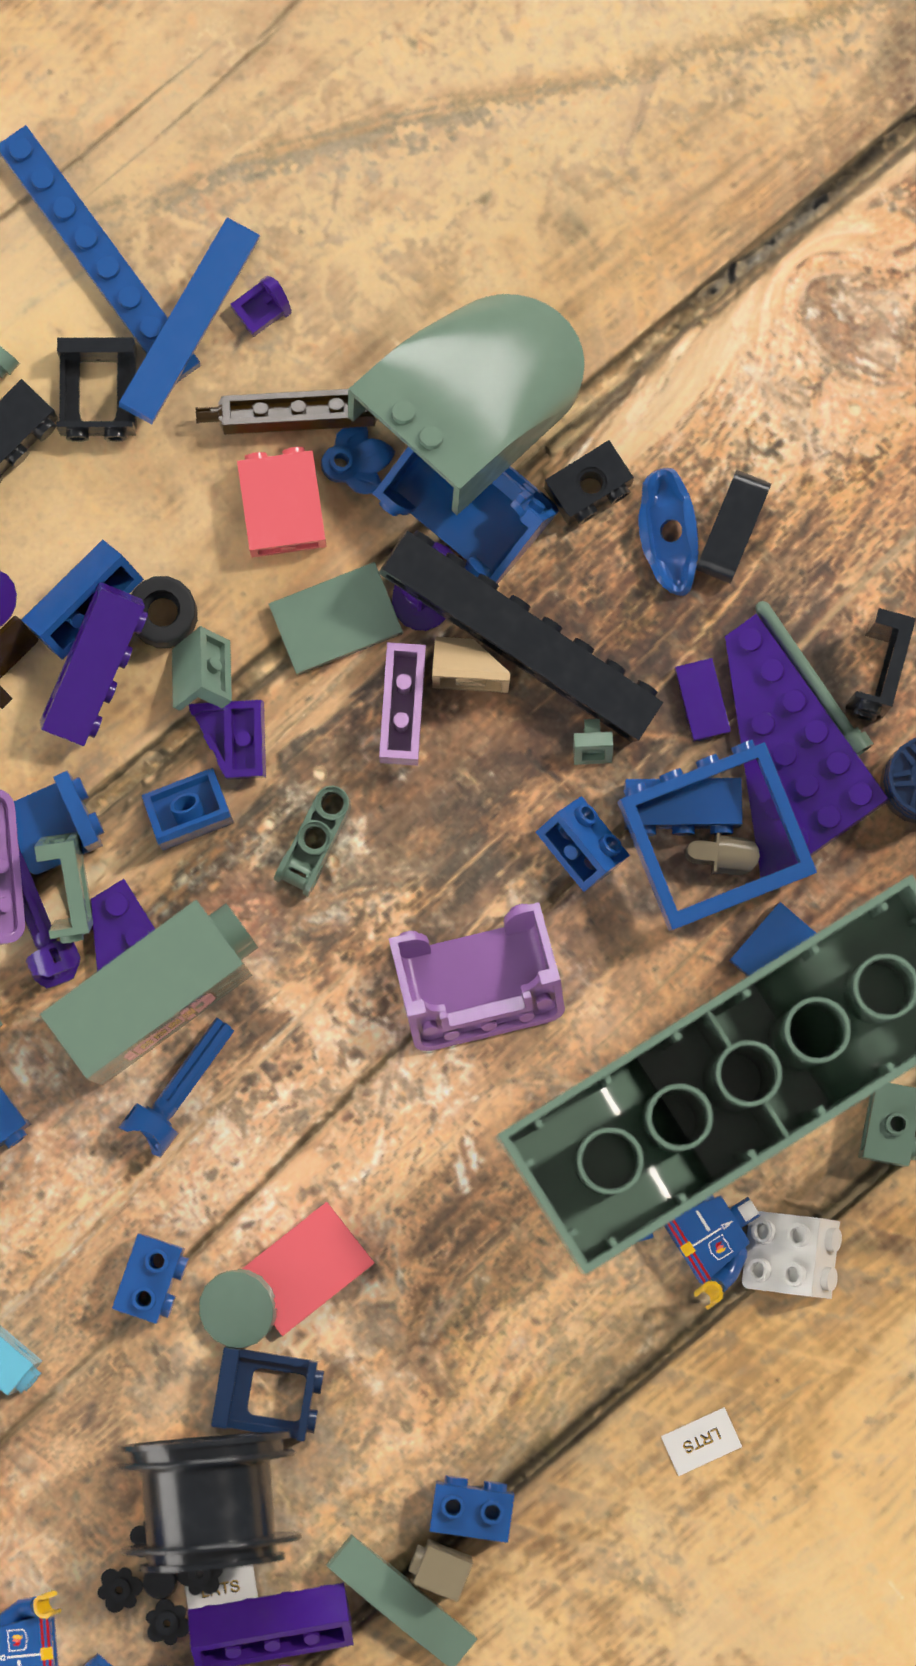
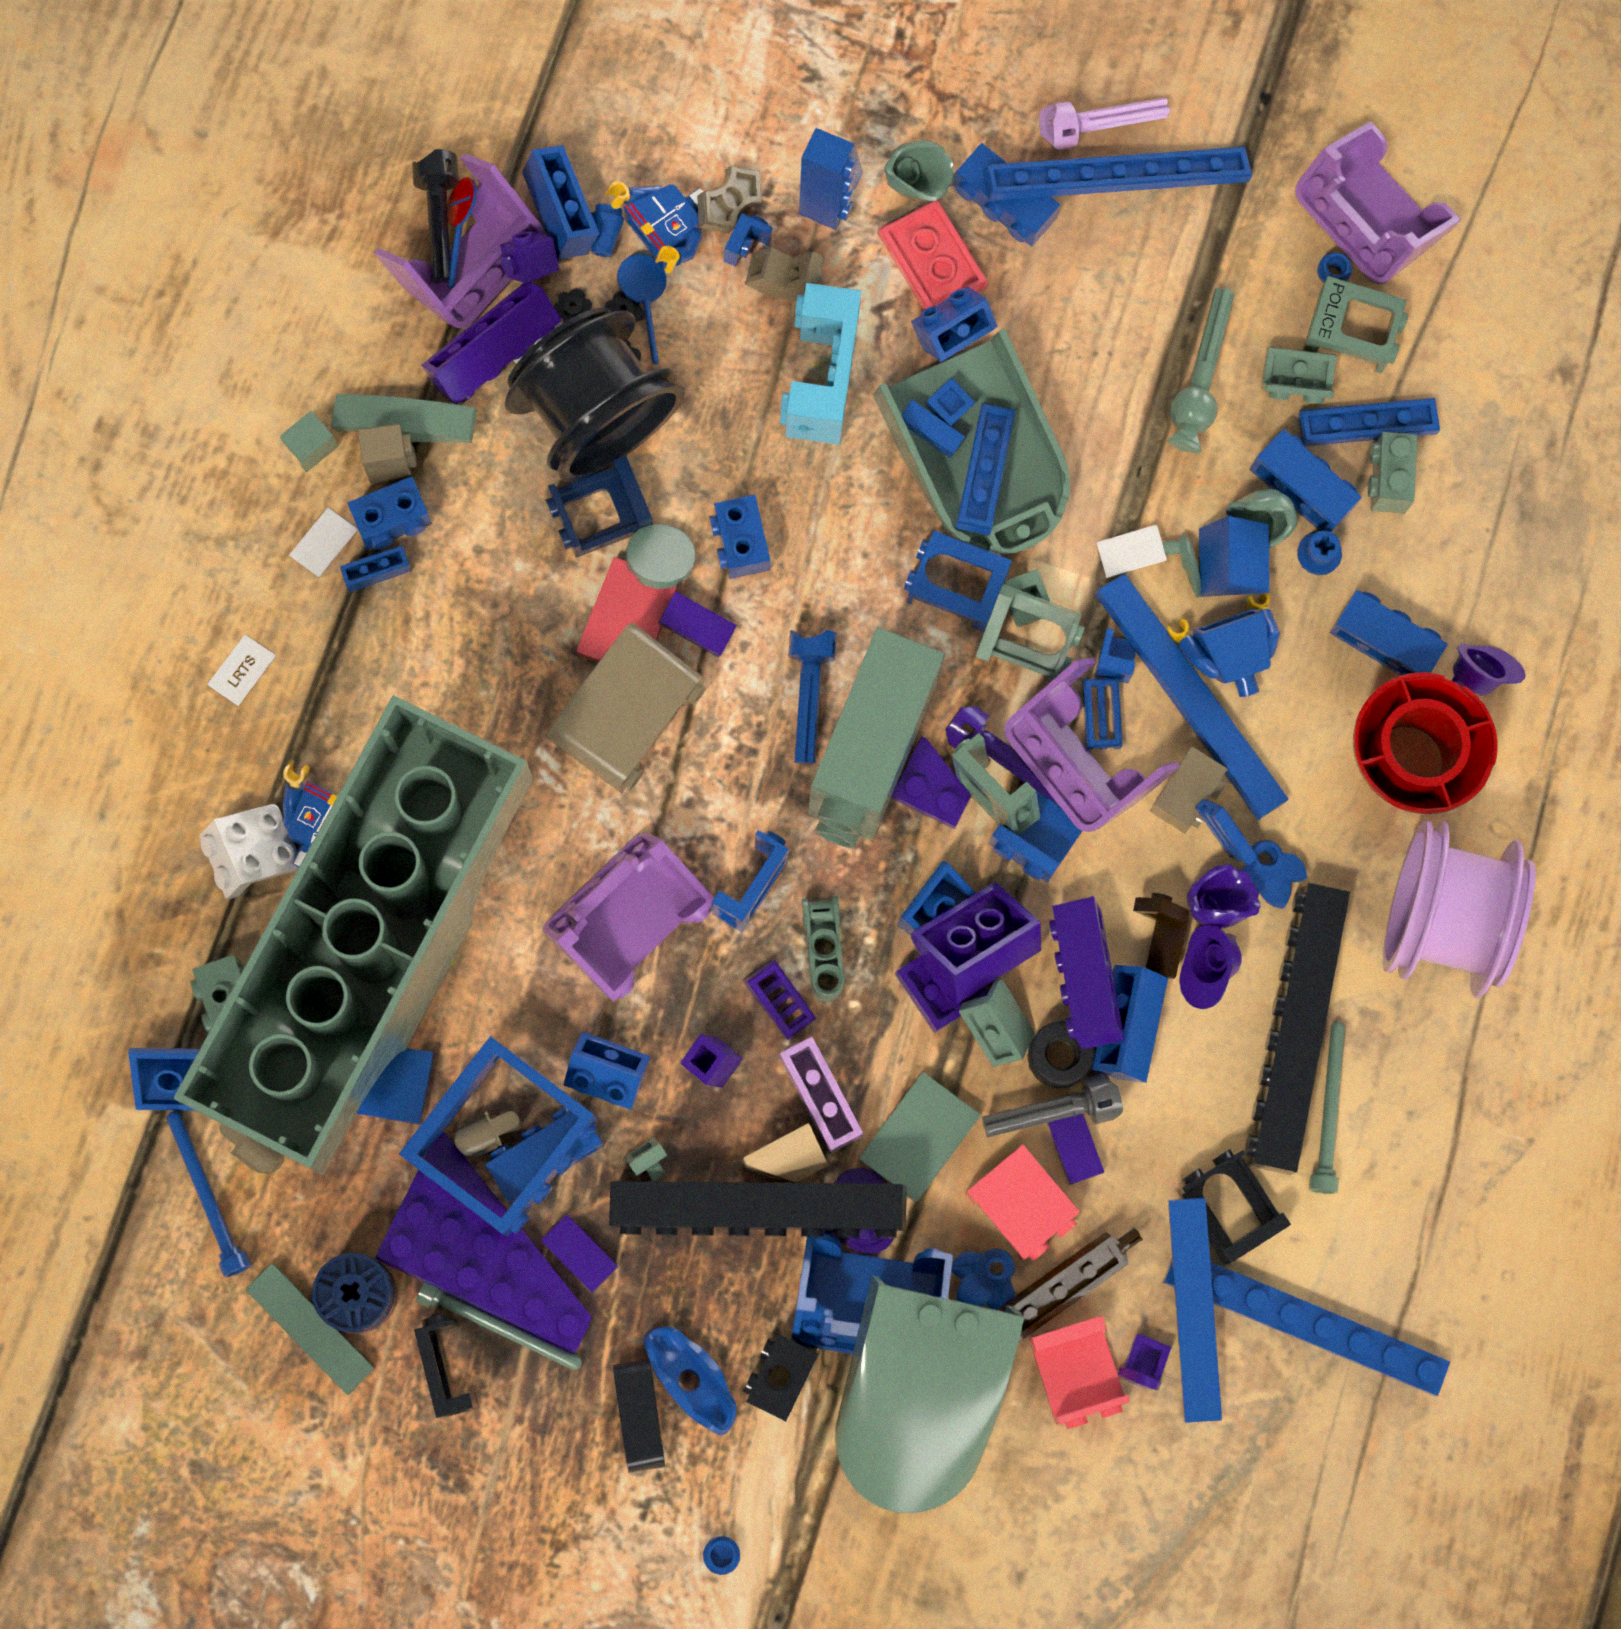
camera: 145 degrees right, 5 degrees down
(85, 1603) = (643, 282): none -> blue piece
(157, 553) = (1098, 1098): none -> dark grey piece
(173, 756) = (977, 941): none -> dark purple slope
(201, 528) = (1075, 1148): none -> dark purple tile
(243, 1219) = (697, 624): none -> dark purple tile
(325, 331) = (1078, 1372): none -> coral panel
(360, 1171) = (625, 707): none -> dark tan windscreen
(368, 911) = (740, 914): none -> blue panel
(385, 850) = (759, 994): none -> dark purple slope
(482, 794) = (711, 1060): none -> dark purple brick
(508, 1634) = (309, 441): none -> sand green panel
(517, 1464) = (375, 568): none -> blue piece
(551, 1524) = (323, 542): none -> white sticker
(731, 368) = (721, 1555): none -> blue plate

